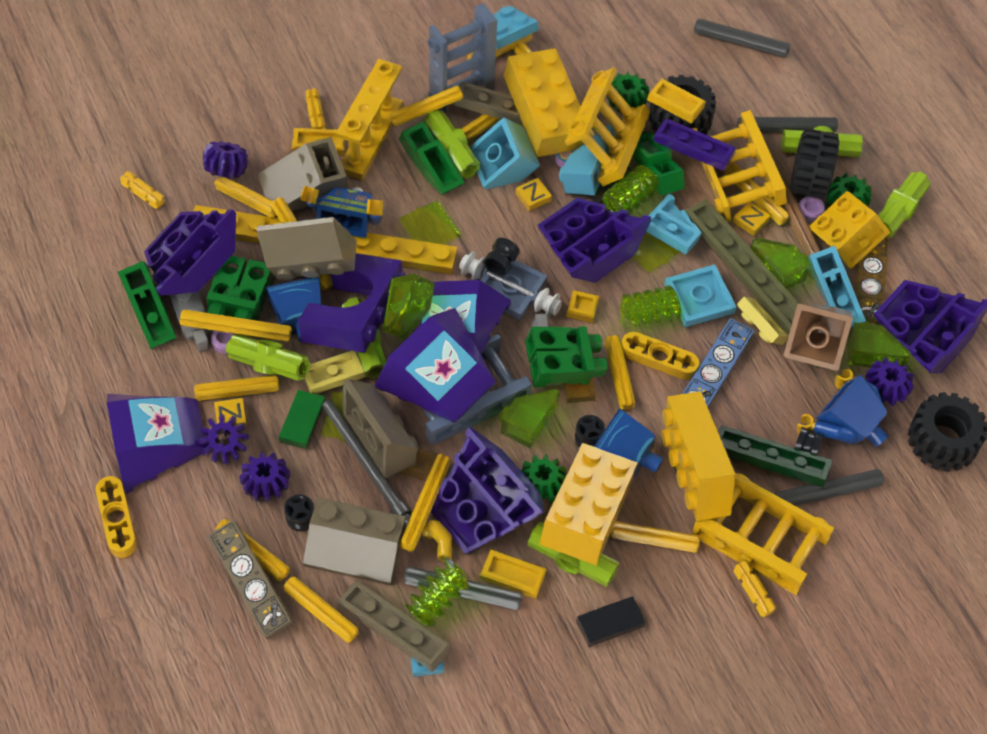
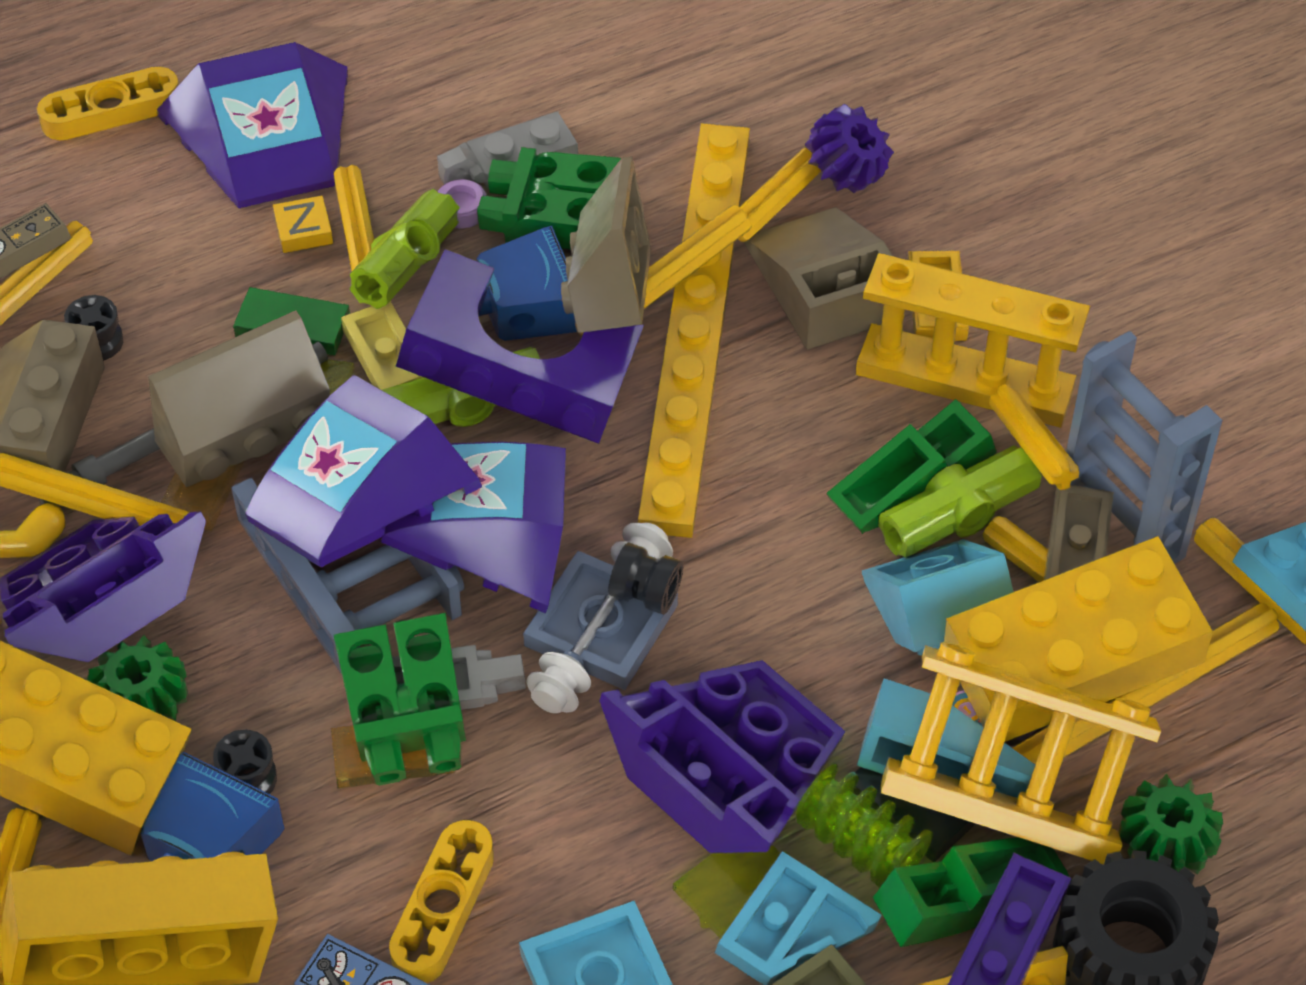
camera: 90 degrees right, 5 degrees down
(142, 189) = (779, 59): yellow axle -> none
(147, 304) = (525, 83): green slope -> none
(191, 250) = (611, 114): dark purple wedge -> none
(234, 439) = (237, 208): dark purple gear -> none
(235, 325) = (469, 184): yellow axle -> none
(275, 480) = (165, 273): dark purple gear -> none
(314, 109) = (1046, 274): yellow axle -> none
(348, 206) = (744, 324): blue torso -> none
(407, 304) = (498, 412): clear neon green slope -> none
(430, 224) = (752, 487): clear neon green piece -> none
(528, 416) = (277, 658): clear neon green slope -> none
(533, 194) = (853, 658): yellow tile -> none
(582, 306) = (566, 757): yellow tile -> none
(619, 372) = (393, 824): yellow axle -> none
(649, 304) = (552, 866): clear neon green piece -> none
(676, 100) = (1117, 892): yellow tile -> none

